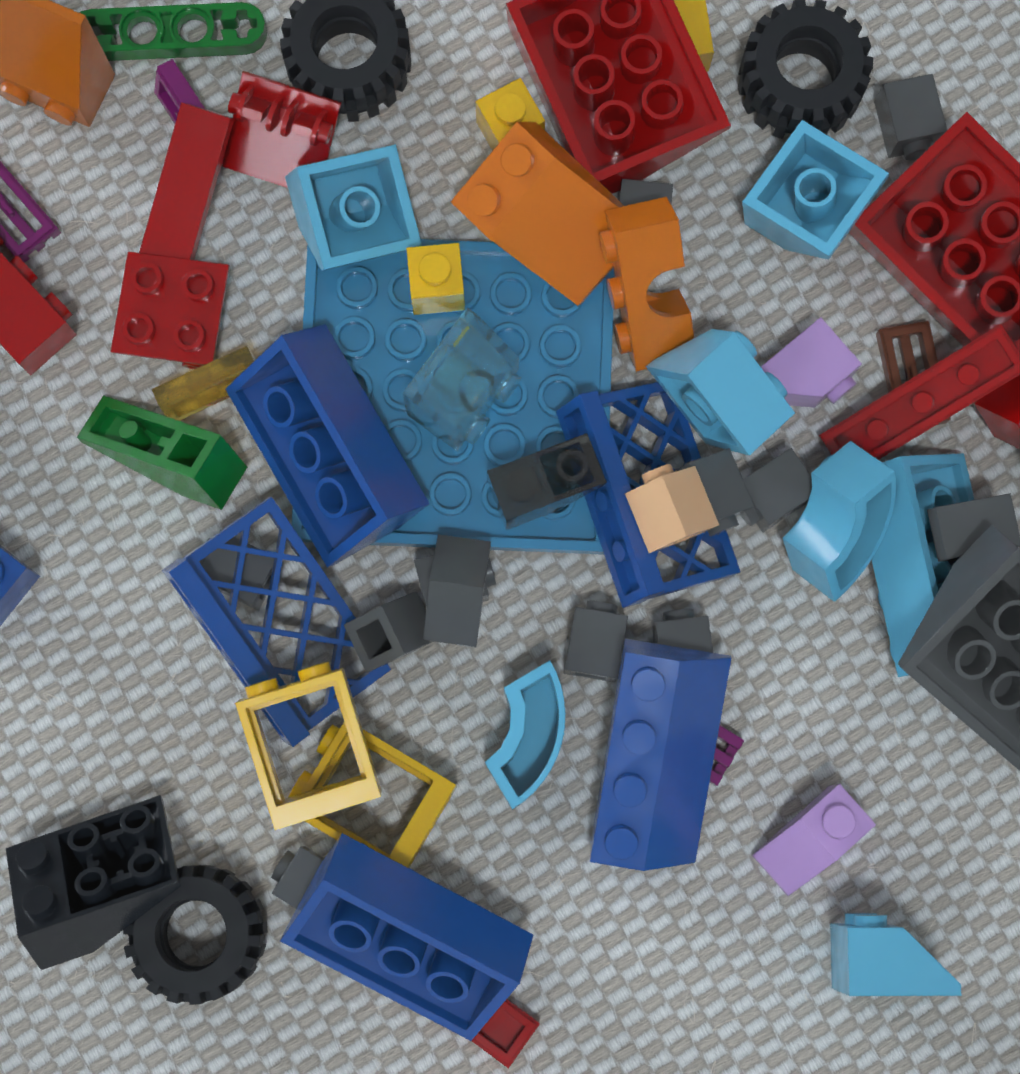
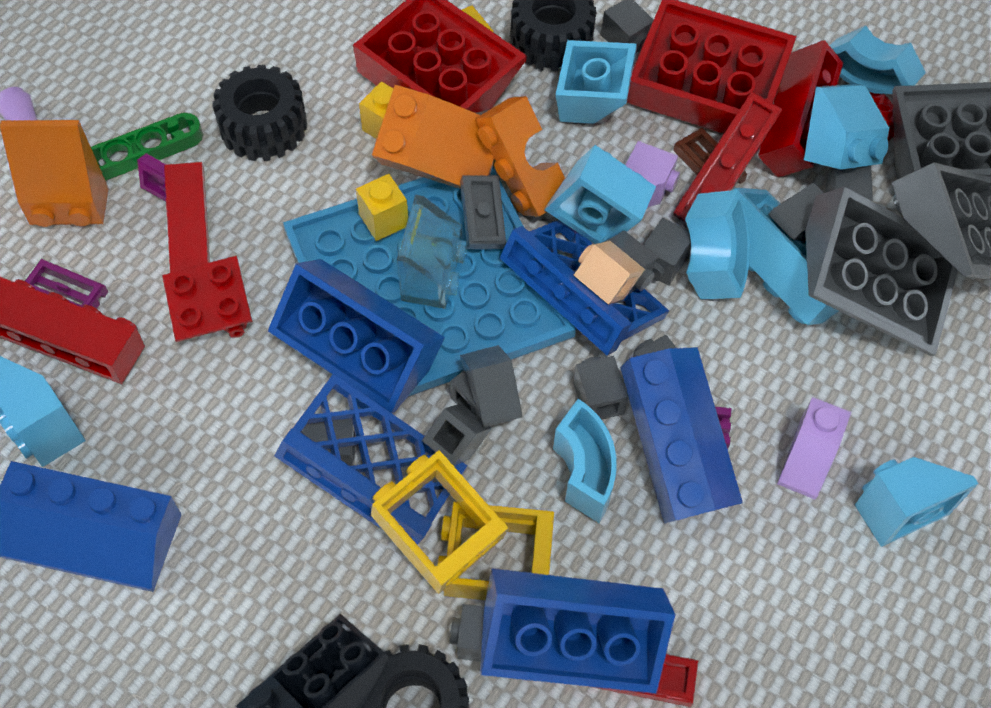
camera: 25 degrees left, 20 degrees down
(165, 450) = (246, 387): green slope -> none
(201, 386) = (248, 339): clear yellow tile -> none
(277, 128) = (238, 172): red hinge -> none
(353, 207) = (304, 188): medium azure slope -> none
(545, 481) = (514, 294): clear smoke slope -> none
(563, 338) = (483, 212): none -> dark grey plate

